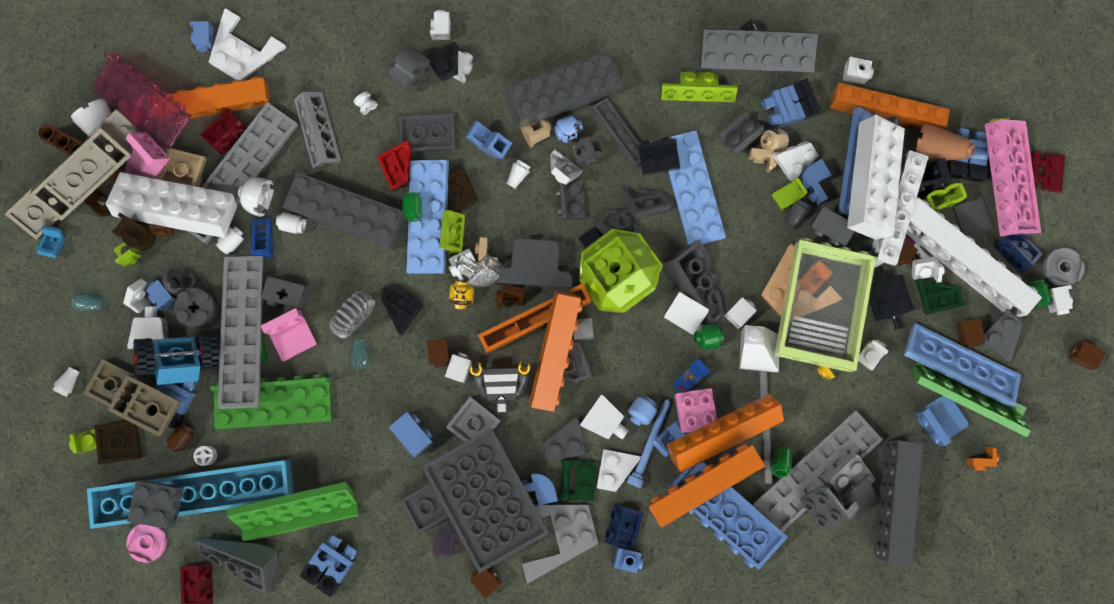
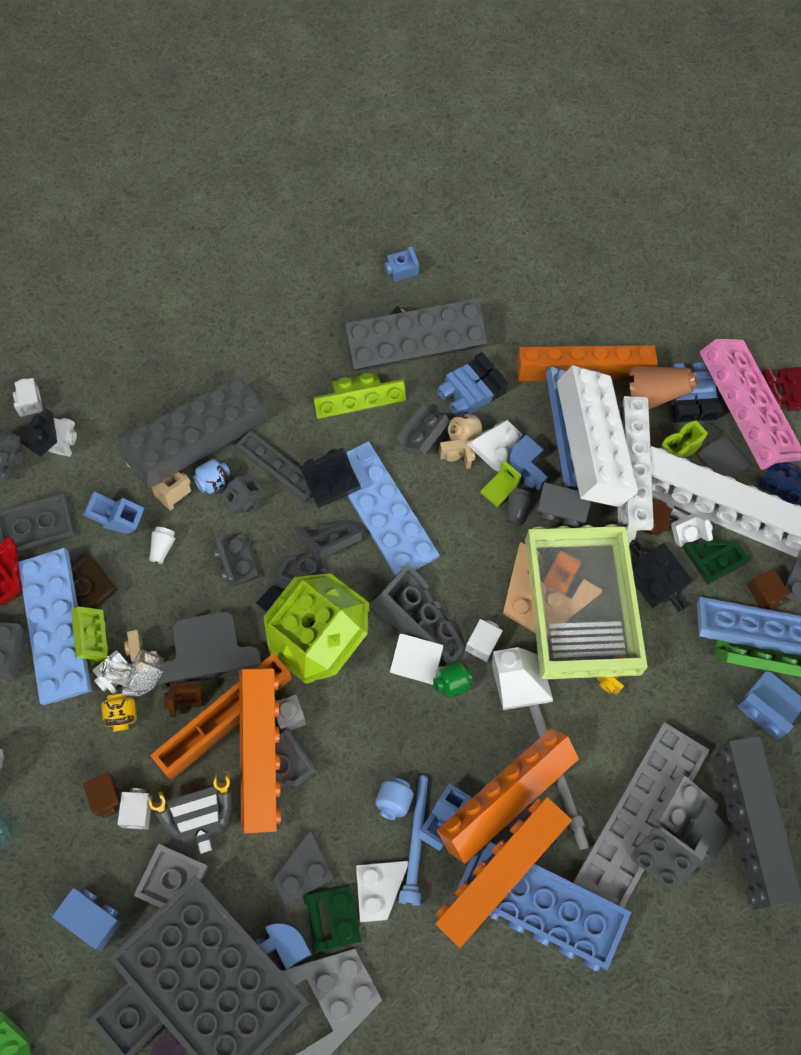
camera: 20 degrees left, 15 degrees down
(400, 308) = (40, 751): black wing -> none
(412, 206) = (29, 615): green brick -> none
(563, 168) = (217, 523): white wing -> none
(604, 419) = (347, 824): white torso -> none
(620, 560) = (418, 1011): medium blue brick -> none
(623, 527) = (411, 966): dark blue bracket -> none
(691, 376) = (444, 736): blue leg -> none
(695, 409) = (460, 774): bright pink bracket -> none
(782, 461) = (592, 814): green brick -> none
(858, 70) = (537, 332): white brick -> none
(872, 353) = (661, 647): white bracket -> none
(935, 176) = (663, 421): black bracket -> none

